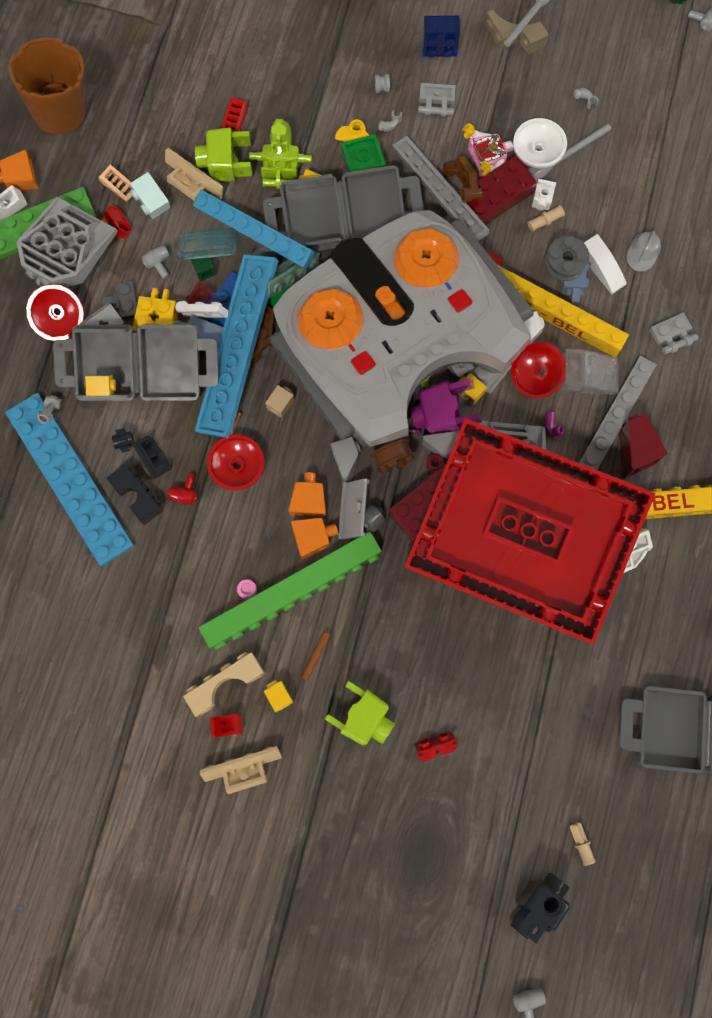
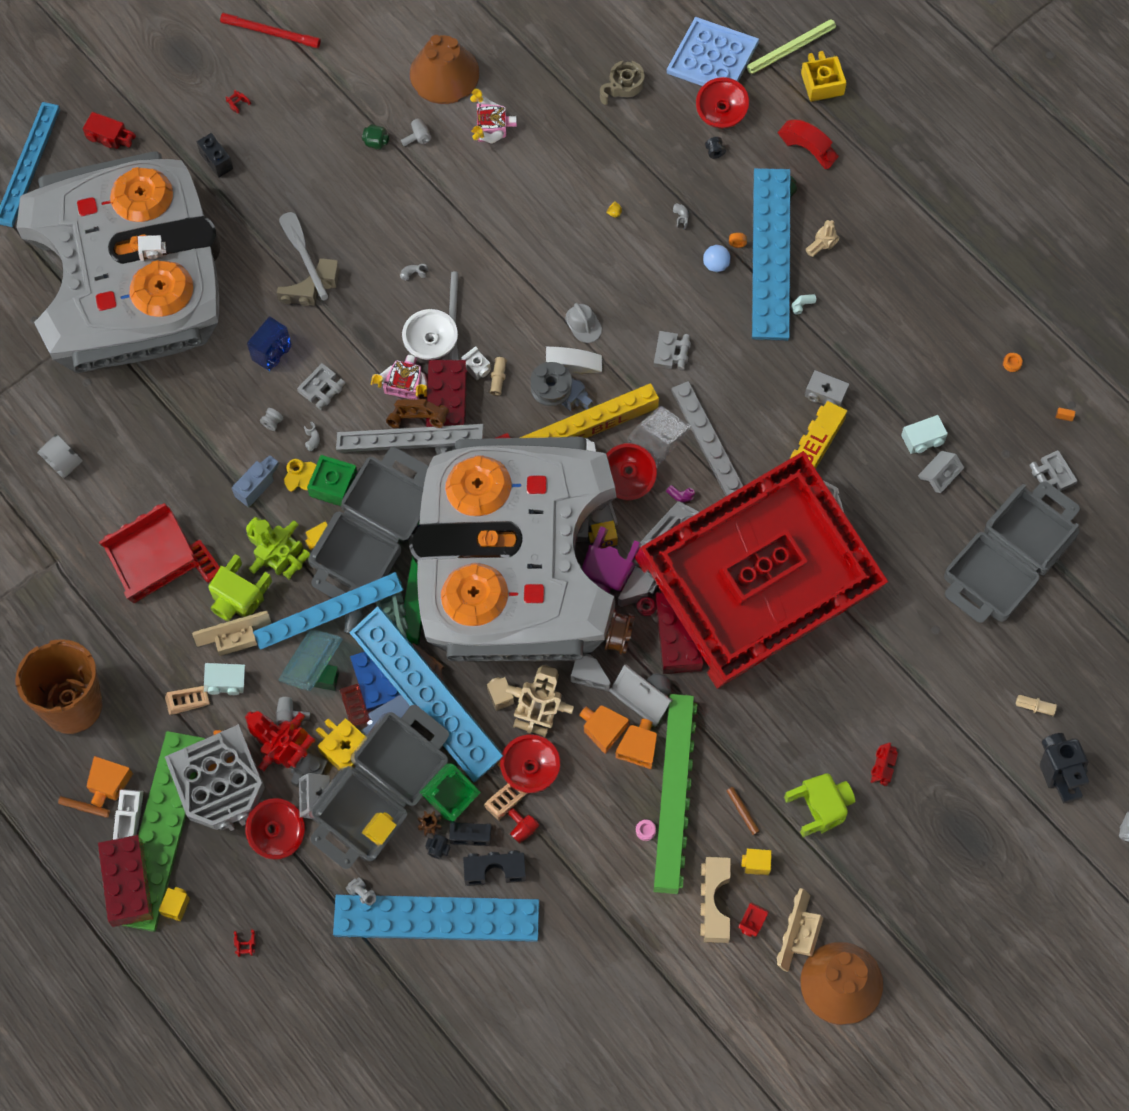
camera: 55 degrees left, 10 degrees down
(117, 220) = (225, 721): red piece -> none
(129, 269) = (280, 743): none -> red piece
(133, 419) = (426, 819): none -> reddish brown gear
(169, 418) = (450, 792): none -> green container
(192, 456) = (498, 814): none -> light nougat slope
(203, 310) = (369, 702): white hinge -> none
(211, 76) = (149, 552): none -> red panel
(224, 833) = (841, 983): none -> dark orange cone
(291, 433) = (538, 701): none -> tan piece
(322, 107) = (255, 481): none -> sand blue hinge
(639, 445) = (747, 440): dark red slope -> none

